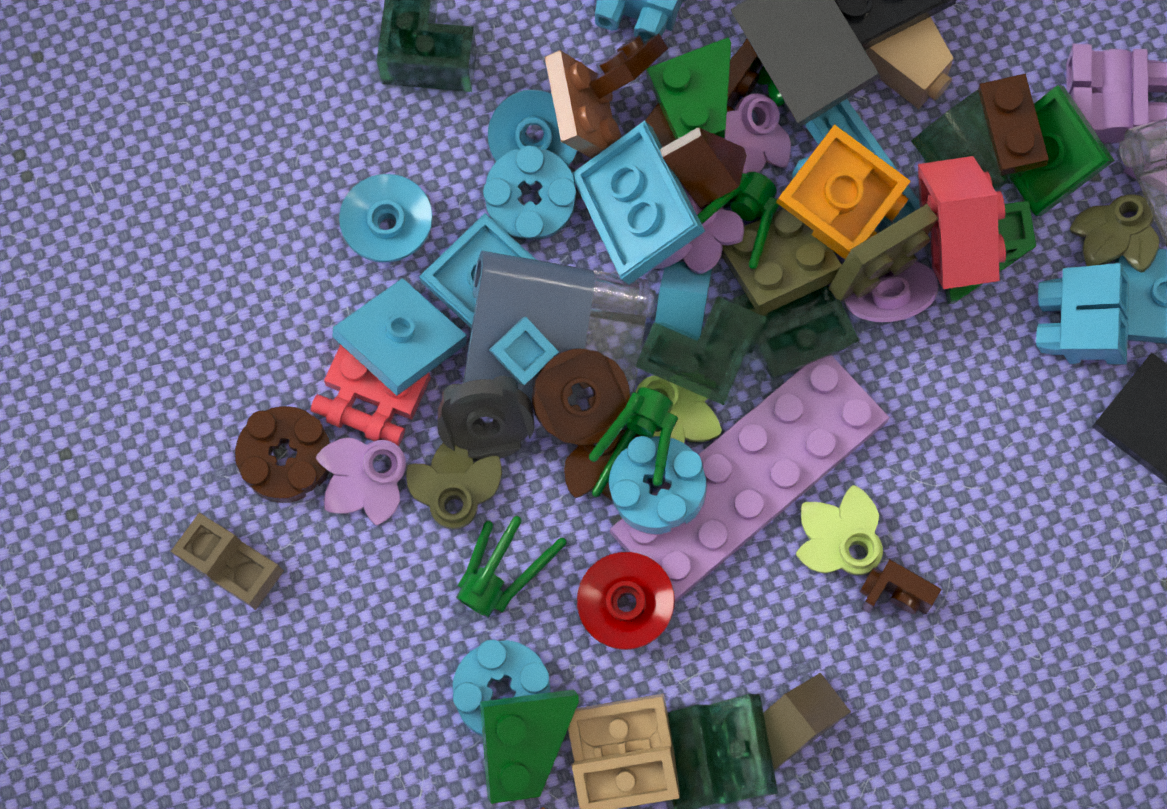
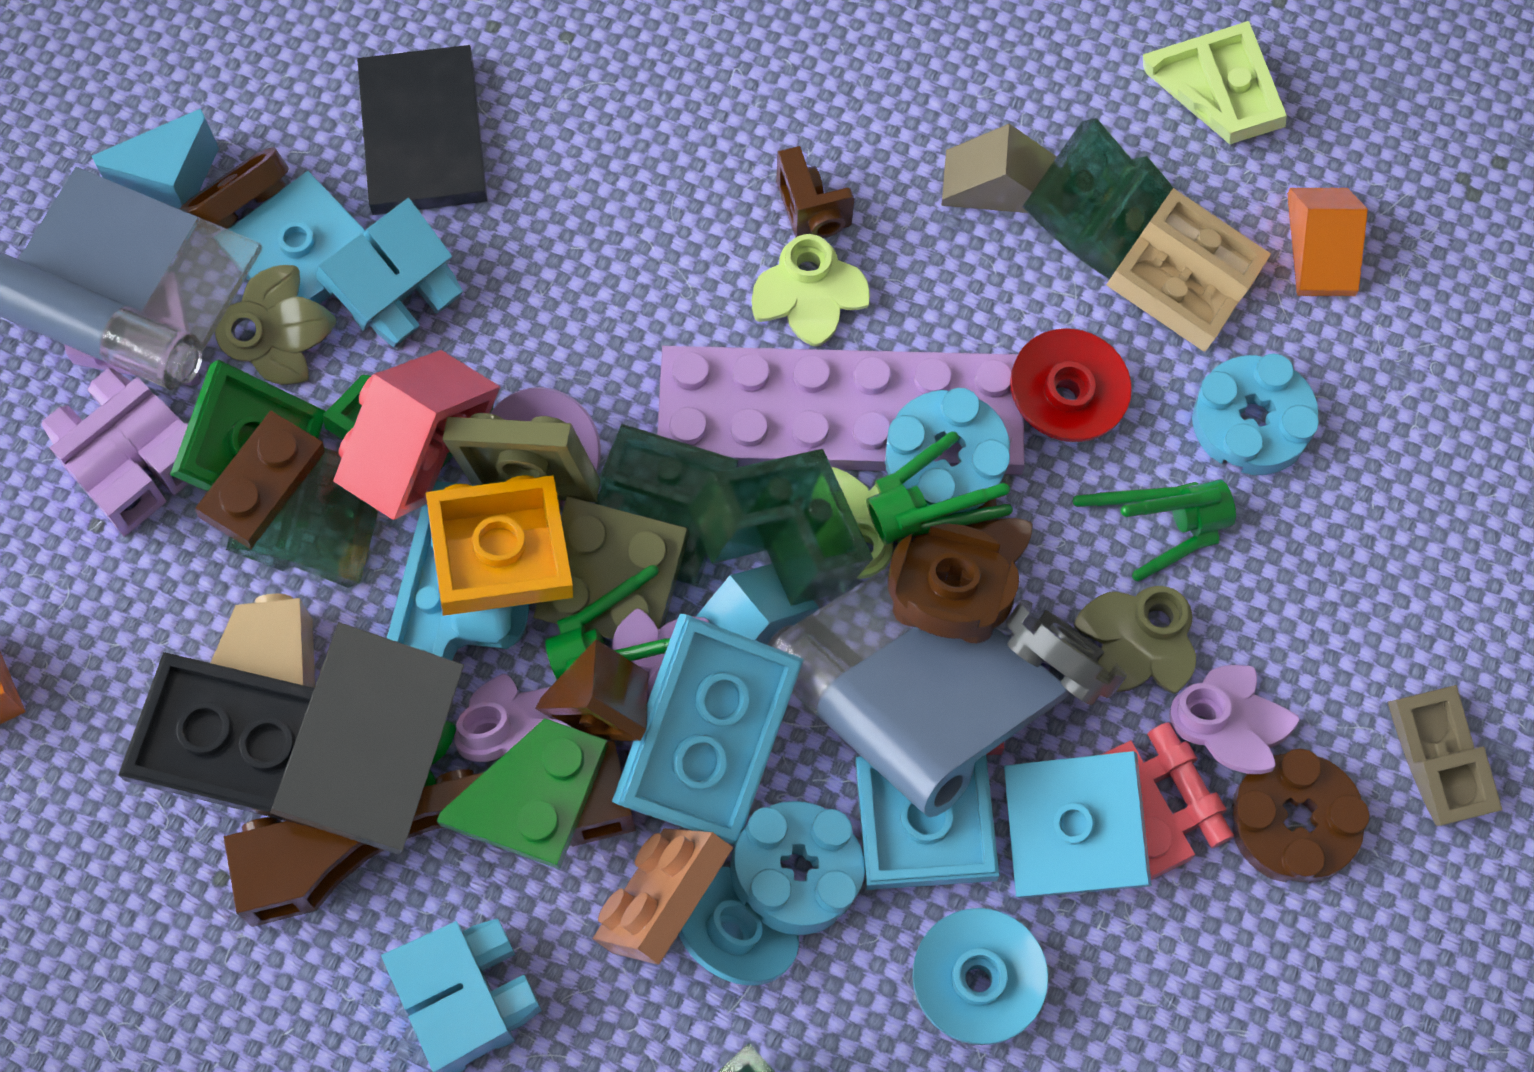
camera: 140 degrees left, 5 degrees down
(523, 350) = (976, 661): medium azure plate -> none
(523, 742) = (1277, 339): green wing -> none
(627, 64) = (567, 896): reddish brown plate -> none

